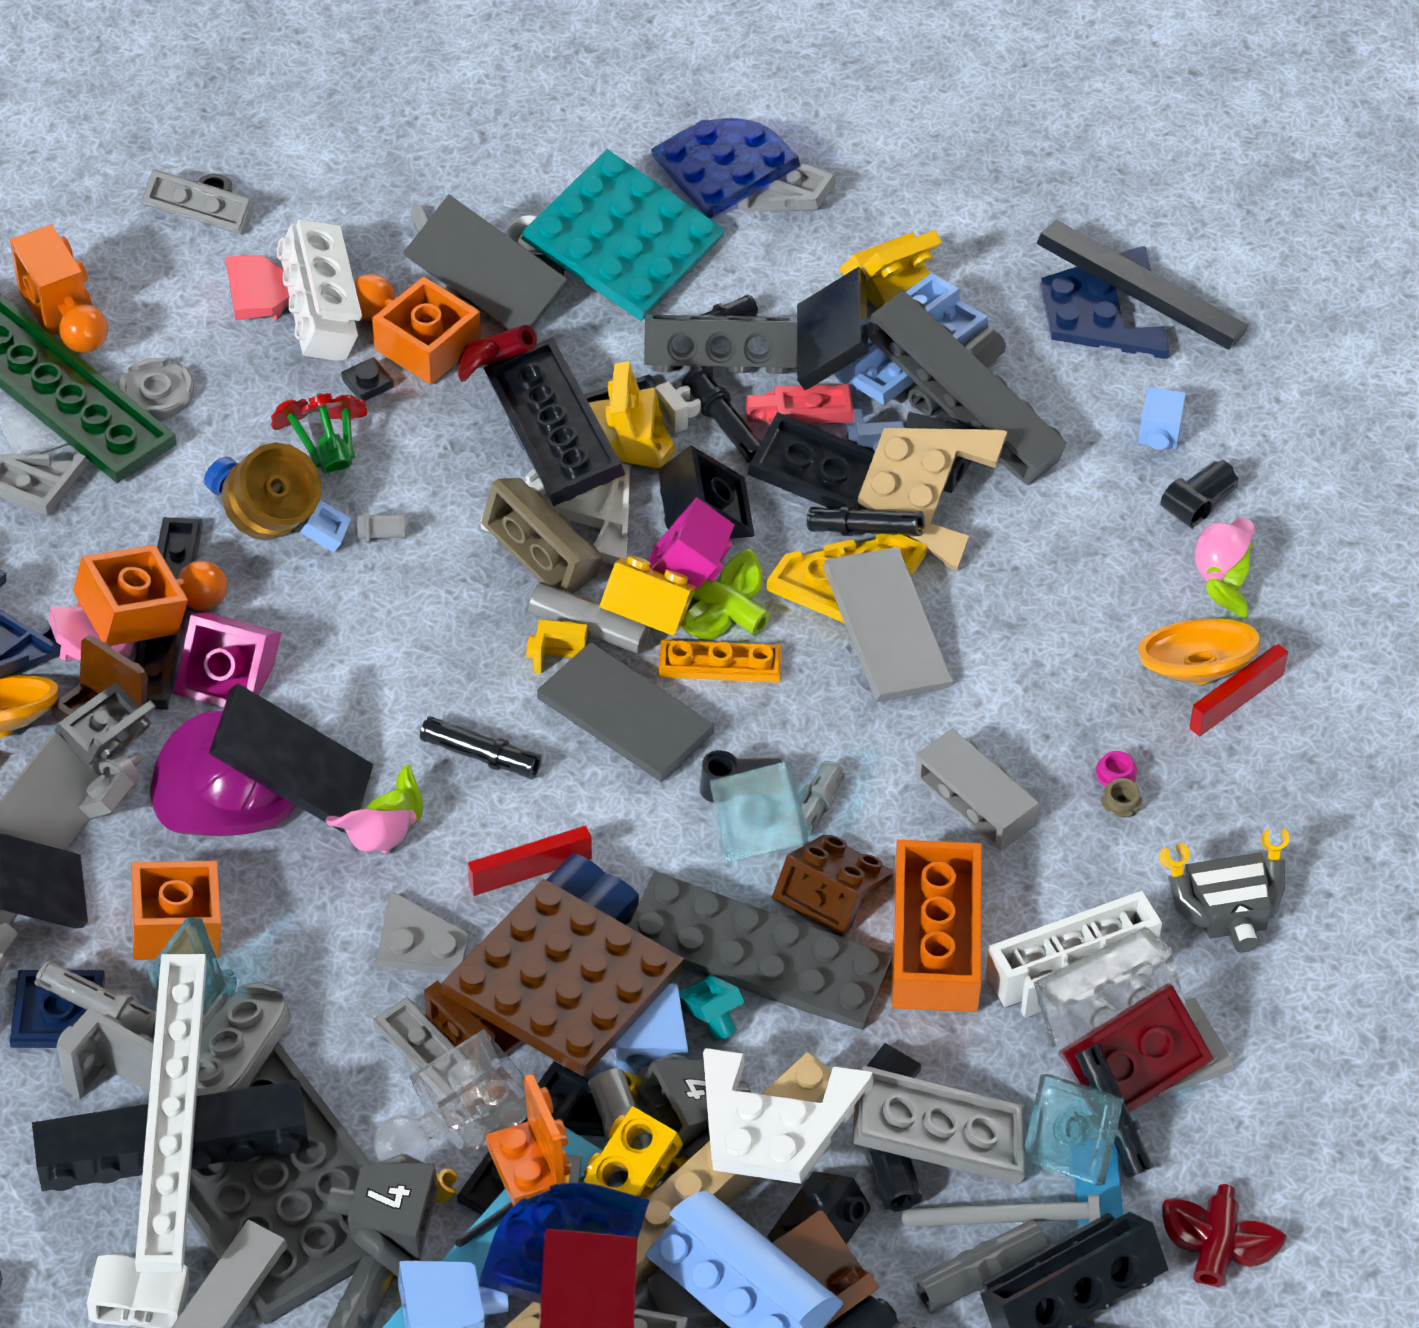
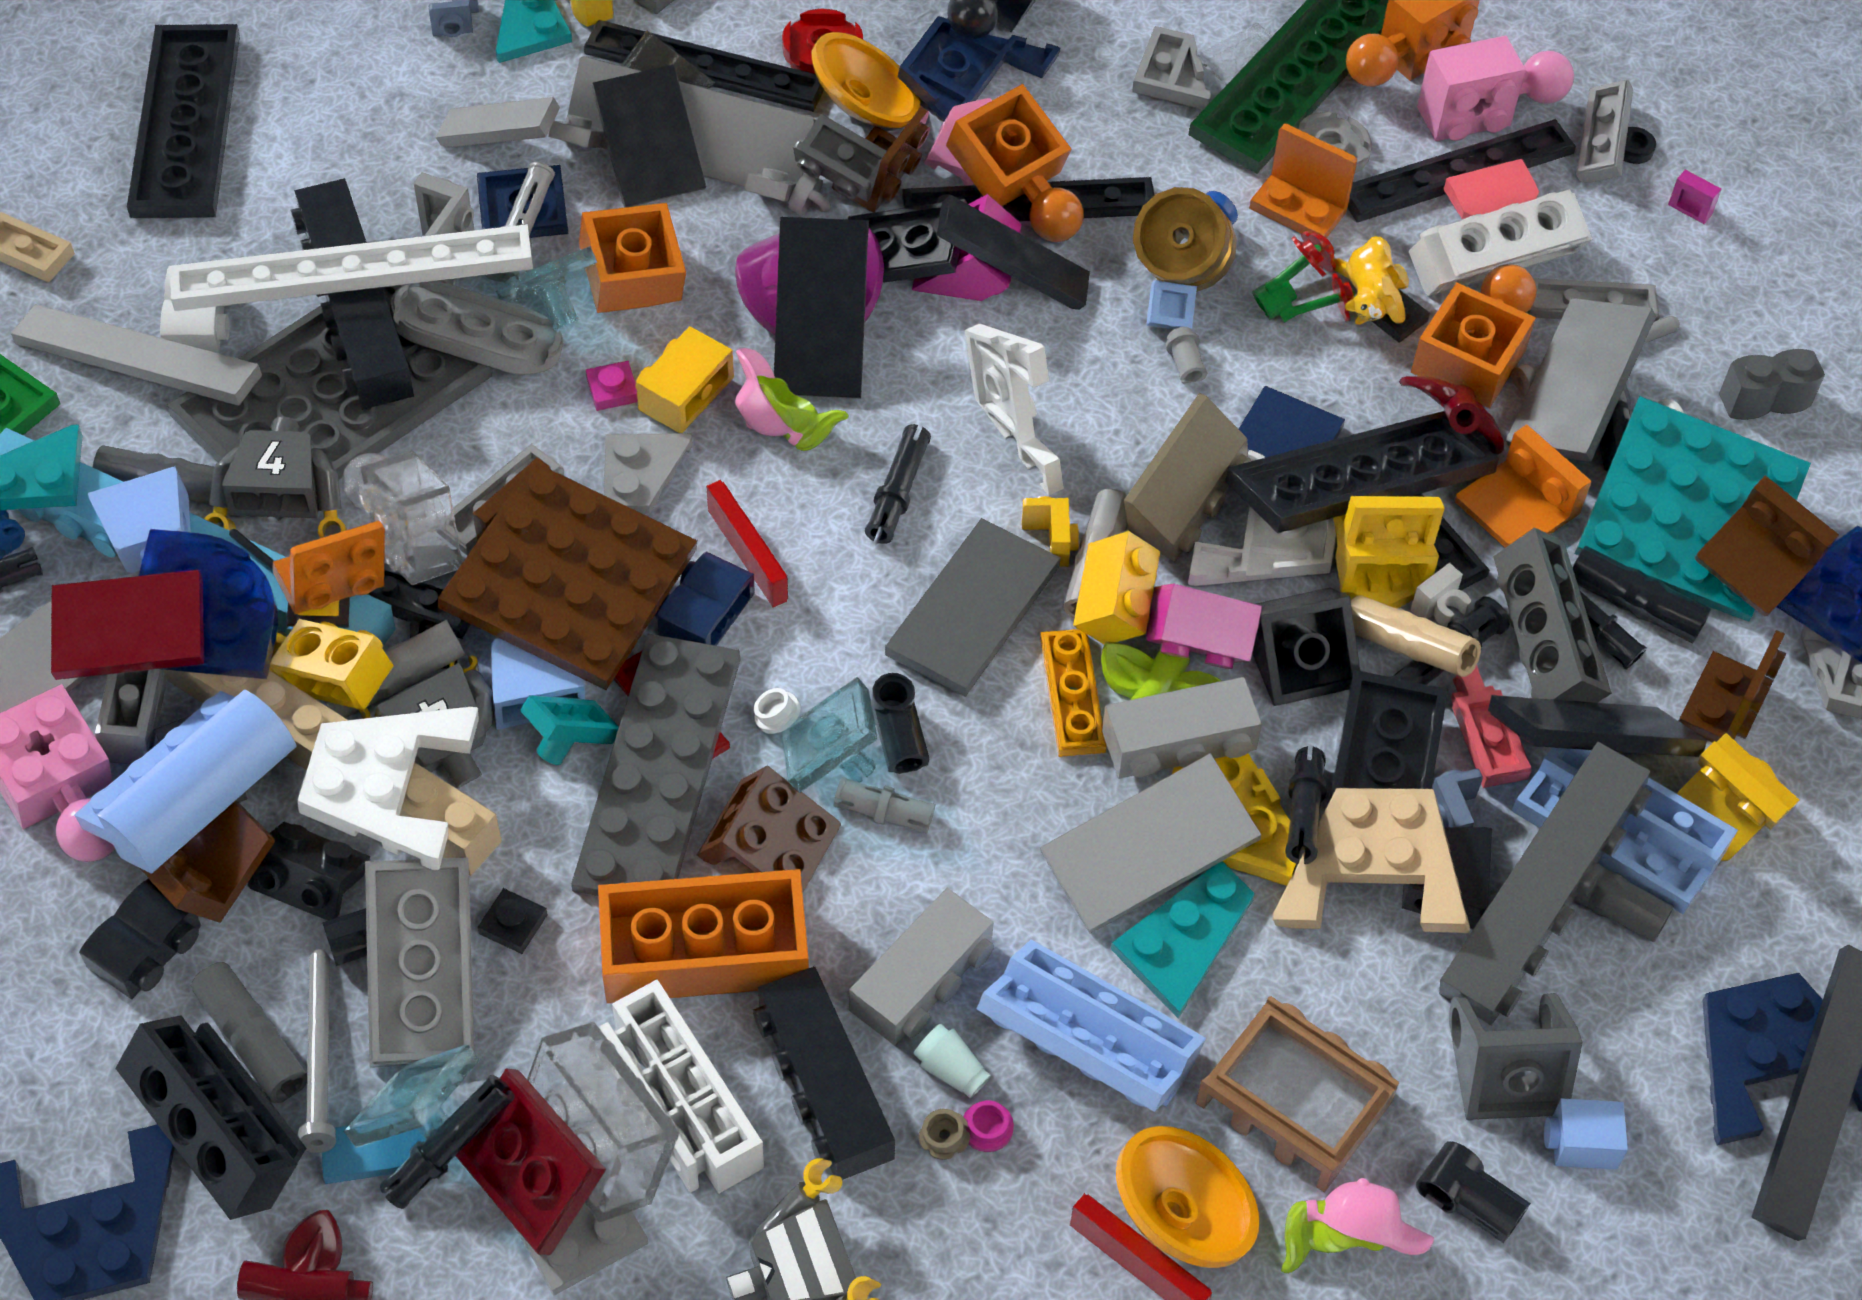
camera: 80 degrees right, 5 degrees up
(140, 261) = (1479, 85): none -> bright pink brick
(205, 680) = (911, 242): none -> black tile
(210, 310) = (1428, 177): none -> black tile
(213, 407) = (1306, 184): none -> orange bracket
(258, 612) = (1013, 253): none -> black tile
(292, 161) = (1694, 196): none -> dark pink plate
(313, 952) = (612, 385): none -> dark pink plate
(334, 885) = (684, 379): none -> yellow brick
(340, 377) = (1376, 281): none -> yellow animal
(384, 244) = (1555, 295): none -> light grey tile
(413, 639) = (1000, 377): none -> white wing
(473, 469) = (1285, 424): none -> dark blue tile
(506, 161) = (1773, 384): none -> dark grey brick
(584, 330) = (1527, 490): none -> orange bracket
(683, 191) = (1766, 547): none -> reddish brown bracket
(697, 284) = (1640, 594): none -> black axle
(711, 861) = (776, 710): none -> white plate
(727, 417) = (1415, 636): none -> tan axle
(791, 580) = (1181, 727): none -> light grey brick
(804, 248) = (1731, 694): none -> reddish brown bracket
(967, 628) = (1185, 935): none -> teal wing
(1044, 687) = (1092, 1026): none -> light blue brick
(1059, 784) = (951, 1060): none -> light aqua cone
(1066, 863) = (825, 1074): none -> black brick
(1109, 575) = (1300, 1089): none -> window
(1111, 457) = (1492, 1057): none -> dark grey hose

